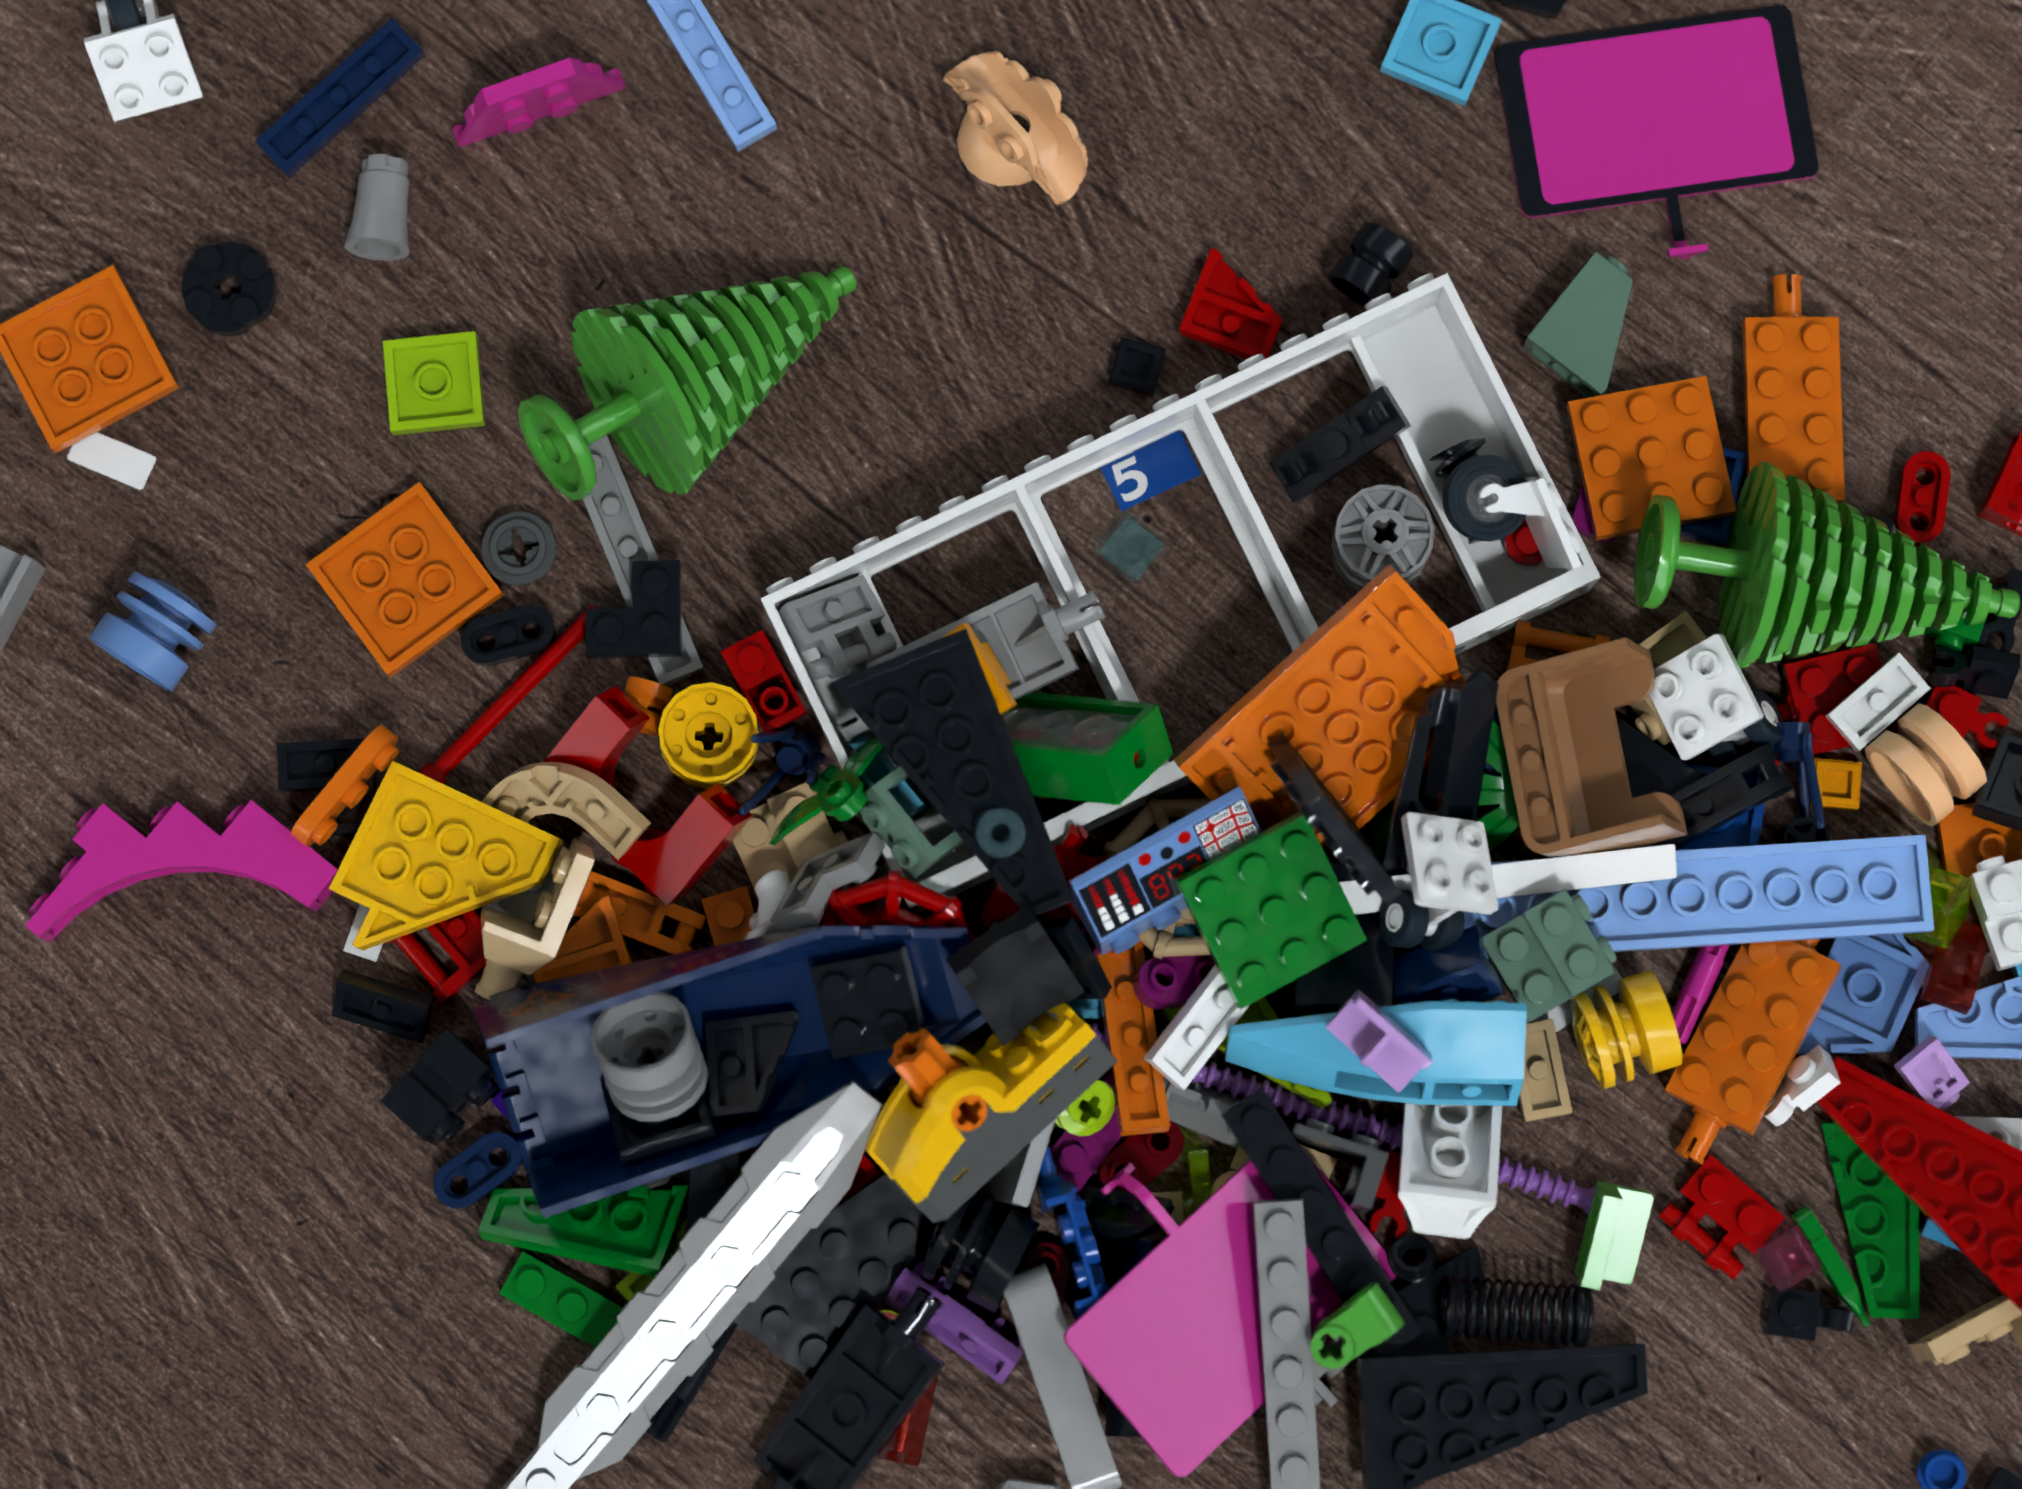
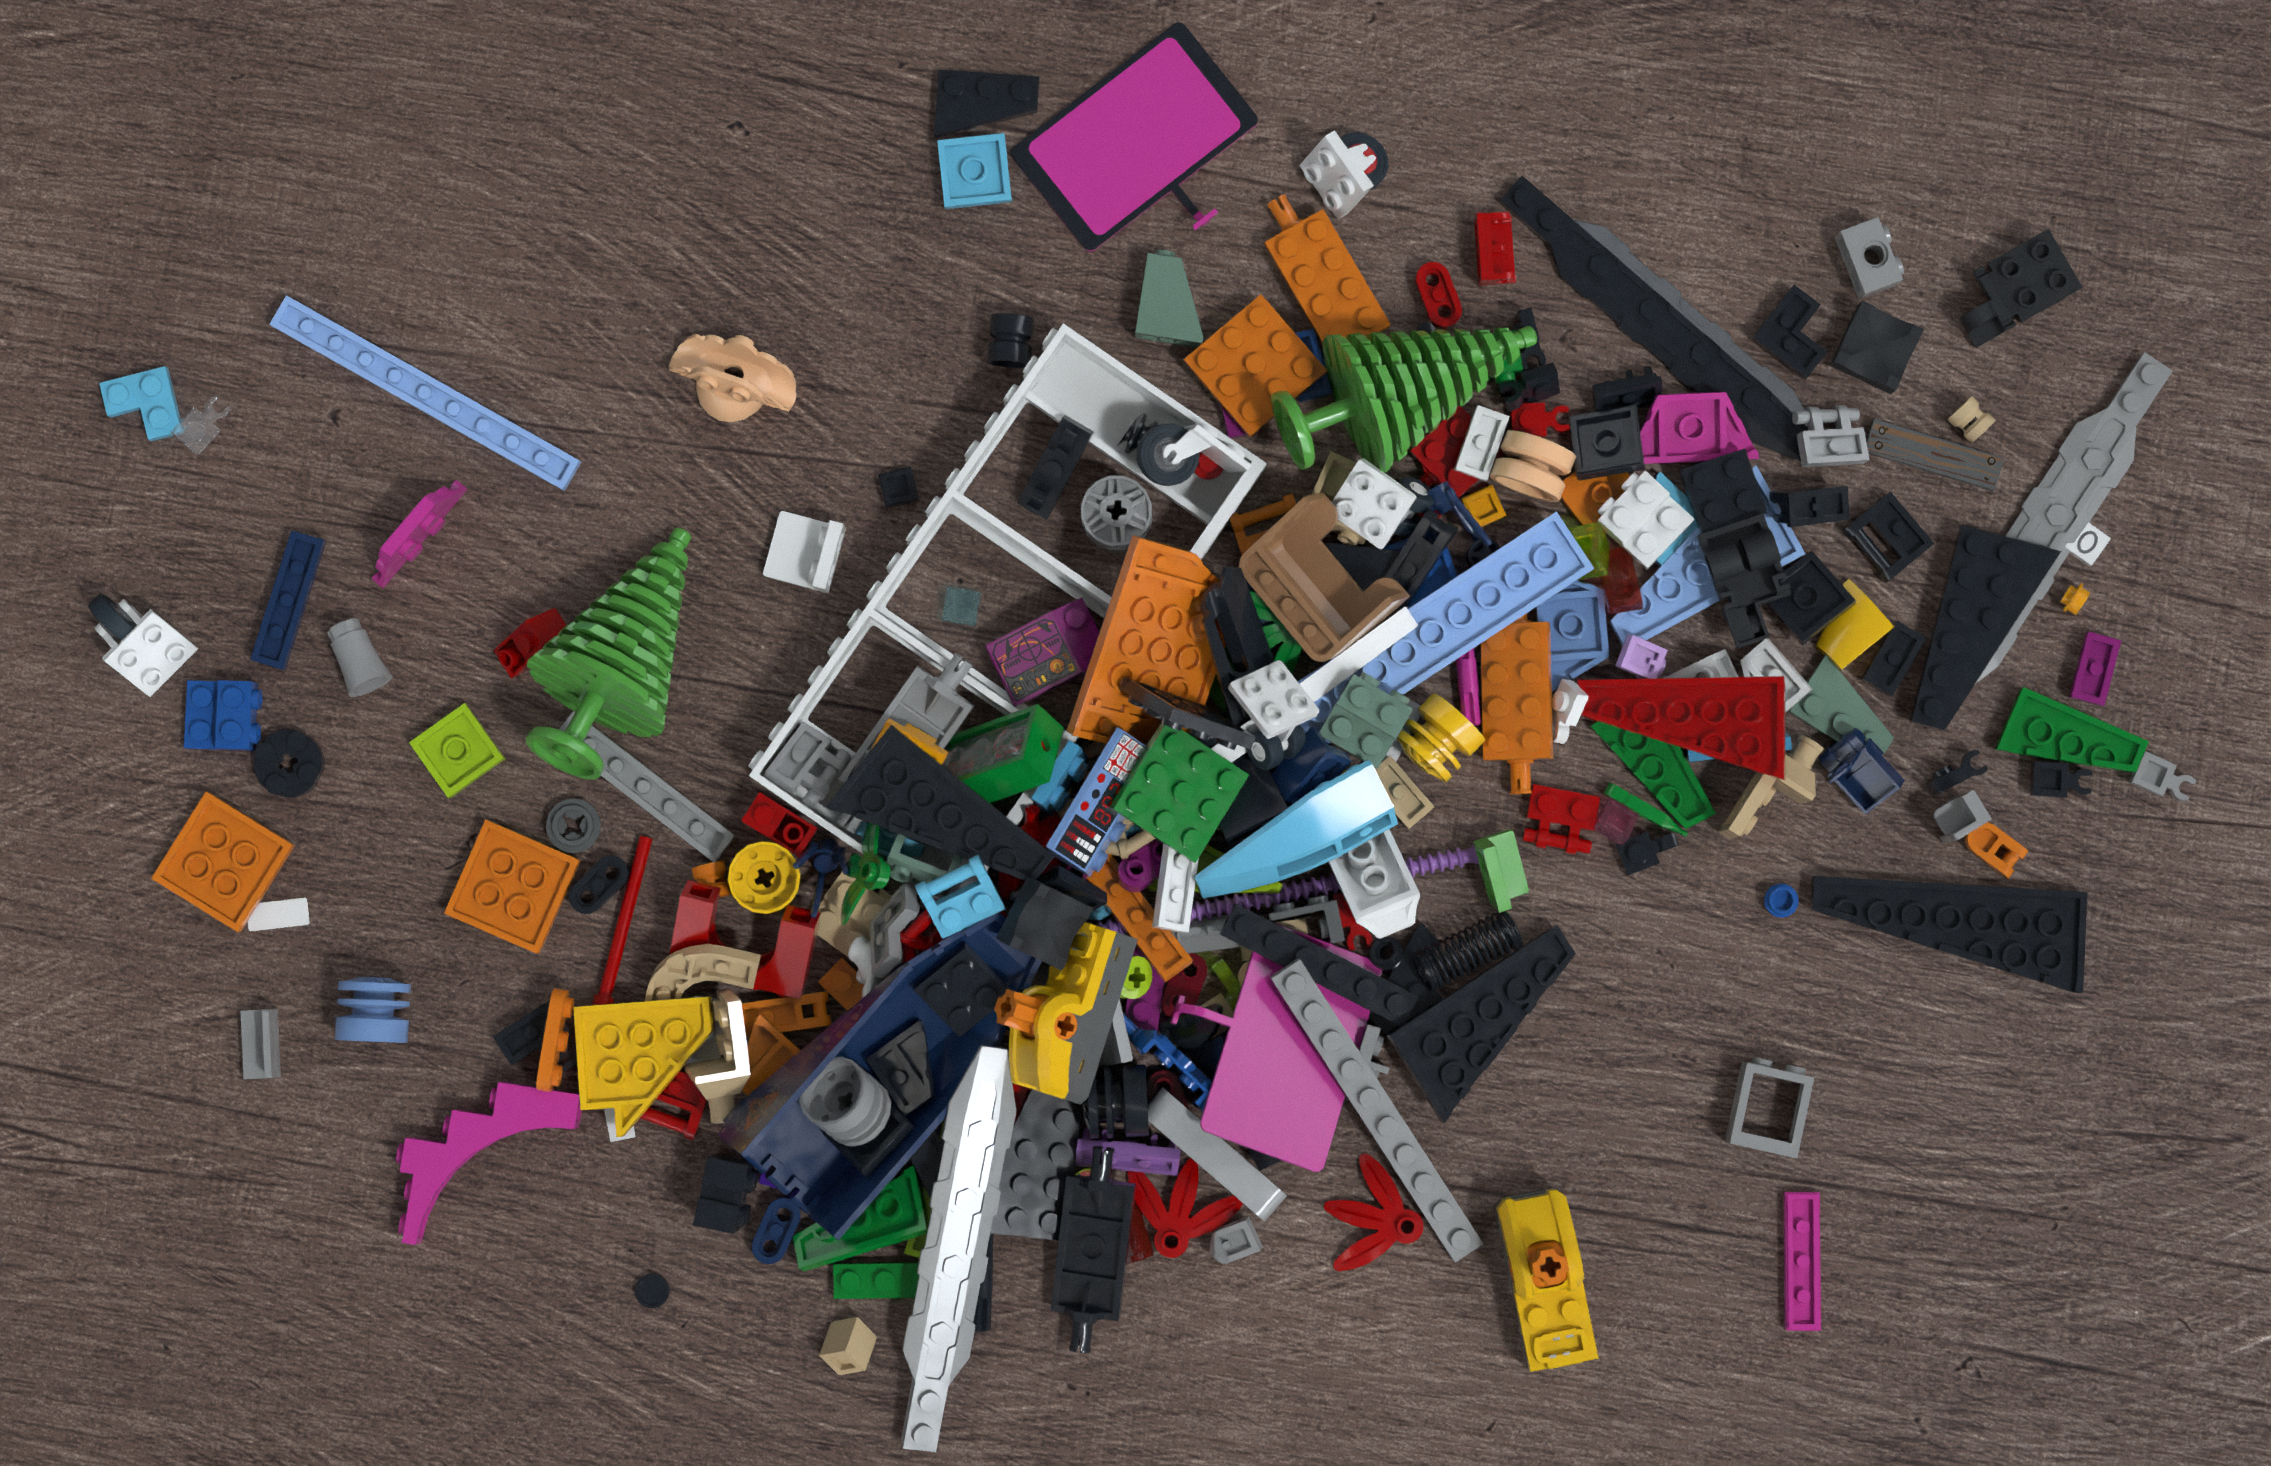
camera: 35 degrees left, 5 degrees up
(185, 189) = (222, 715): none -> blue plate
(288, 1158) = (652, 1290): none -> black piece
(382, 1006) = (656, 1163): black plate -> none
(482, 1361) = (848, 1346): none -> tan panel
(590, 292) = (527, 640): none -> red slope
(649, 627) = (686, 828): black plate -> none
(930, 899) = (964, 905): none -> medium azure plate
(981, 379) = (804, 551): none -> white bracket
(985, 829) = (977, 848): clear light blue plate -> none
(989, 1419) = (1177, 1220): none -> red plant
(1147, 808) = (1068, 767): none -> dark azure plate
(1150, 470) = (945, 549): blue sticker -> none
(1200, 656) = (1045, 652): none -> magenta slope
(1229, 313) = (938, 421): red wing -> none
(1362, 1322) = (1377, 1013): bright green piece -> none
(1379, 1041) = (1292, 835): lavender panel -> none
(1891, 285) = (1345, 169): none -> white plate

